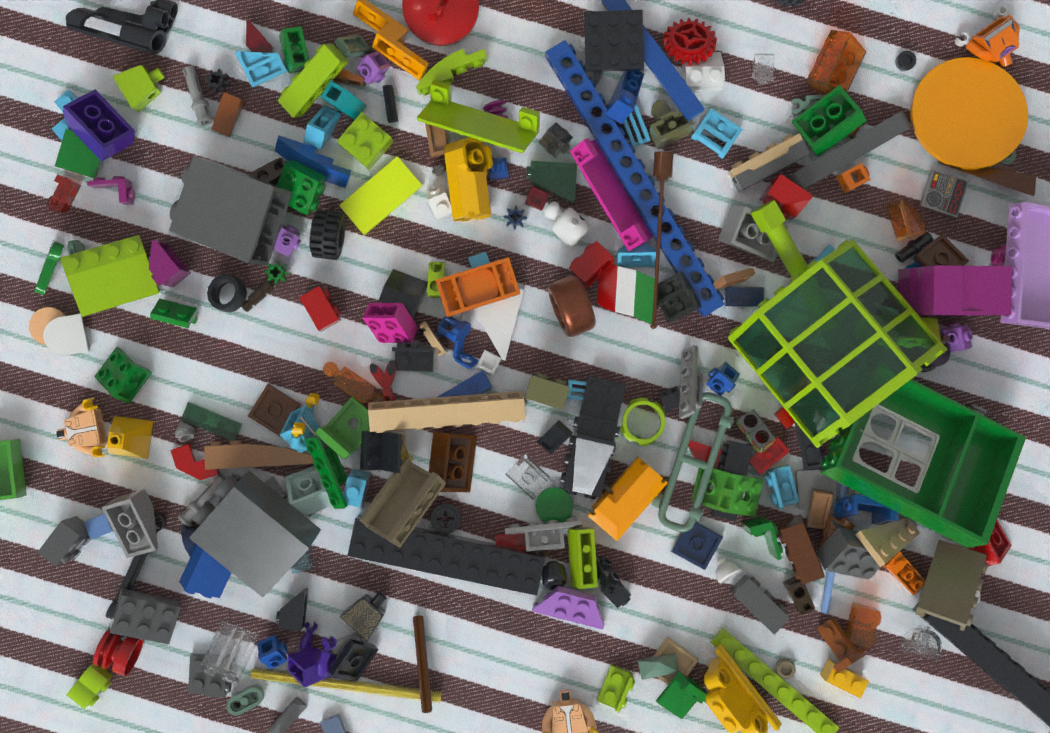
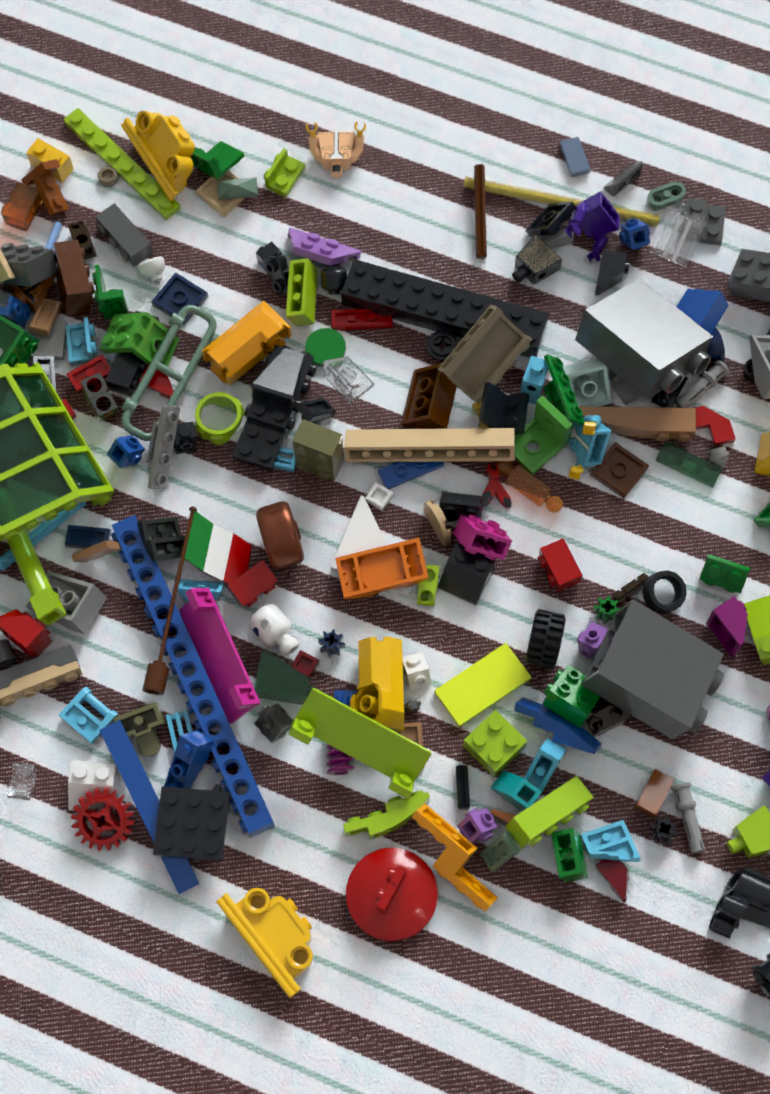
camera: 170 degrees left, 20 degrees down
(457, 335) = (411, 517): blue piece -> none
(479, 260) = (377, 602): medium azure tile -> none
(544, 536) = (339, 315): light grey bracket -> none

